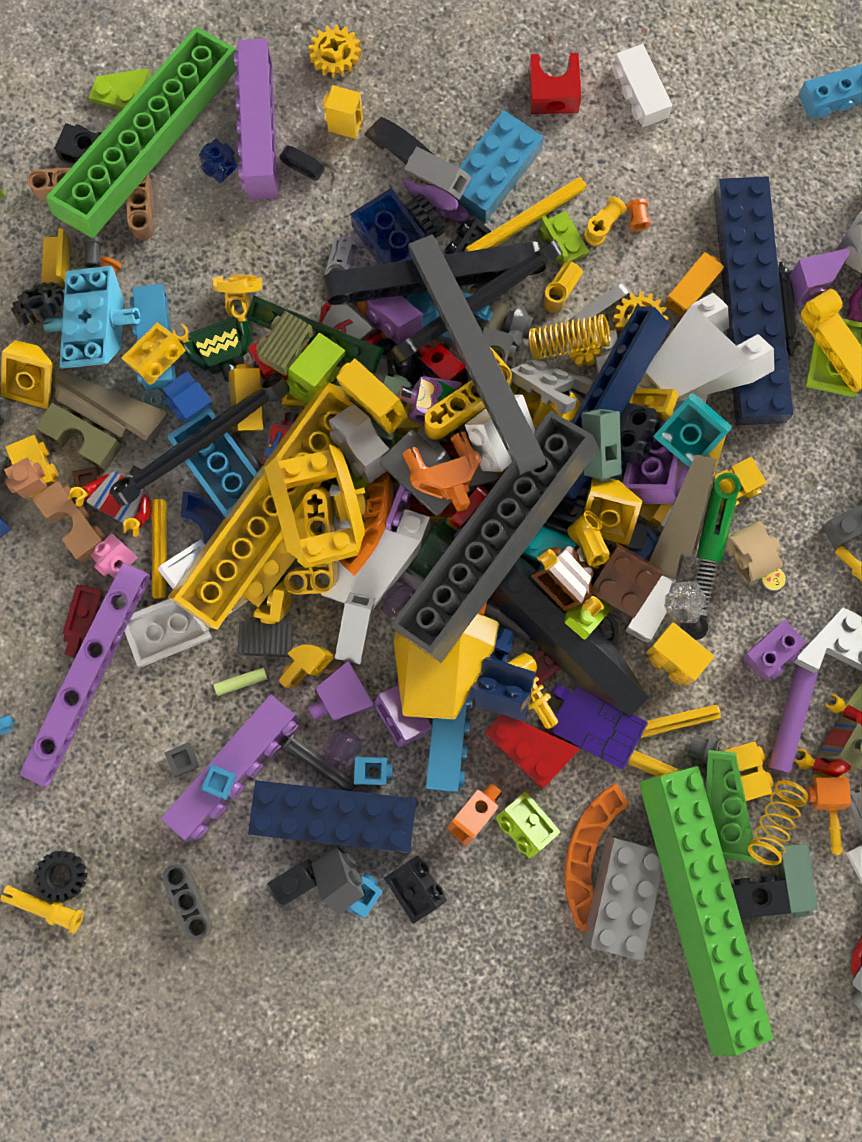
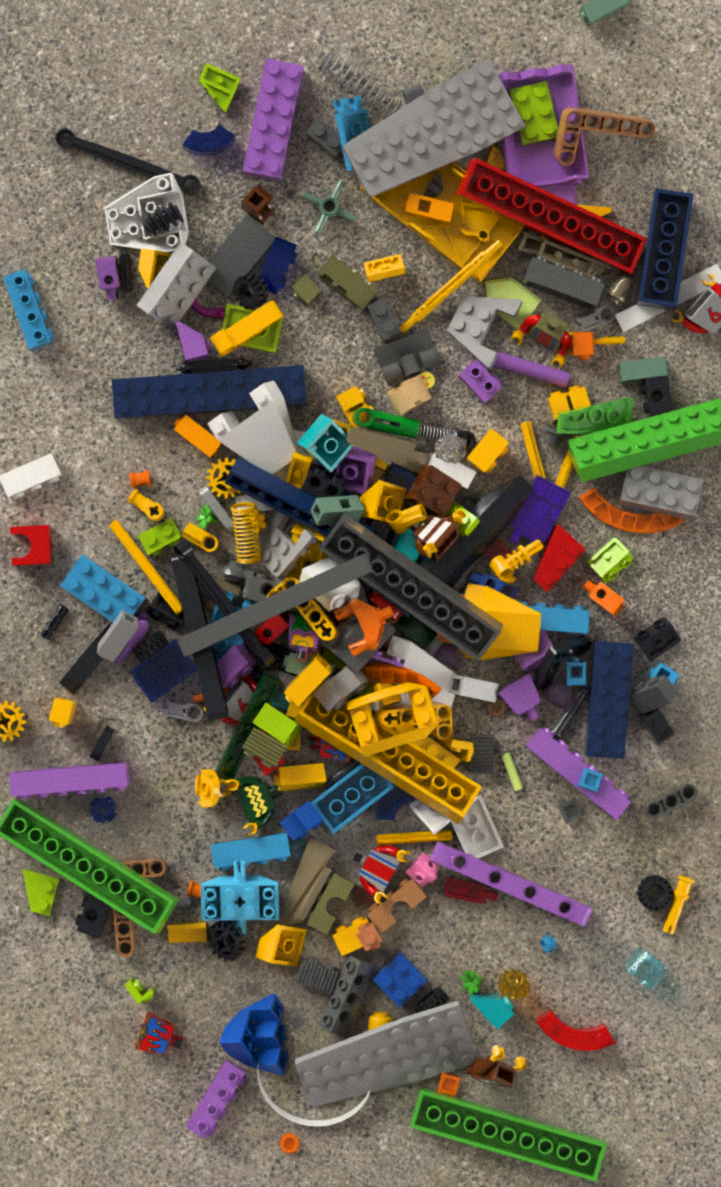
camera: 95 degrees left, 10 degrees up
(128, 488) = (336, 808): black piece -> none
(154, 353) = (269, 847): yellow bracket -> none
(308, 660) = (496, 722): yellow brick -> none
(400, 746) = (554, 657): none -> black beam
(457, 112) = (54, 621): none -> black axle
(503, 688) = (517, 579): dark blue bracket -> none
(588, 294) = (206, 517): none -> bright green plant
(789, 802) = (624, 391): yellow piece -> none
(806, 554) = (407, 356): none -> dark grey panel

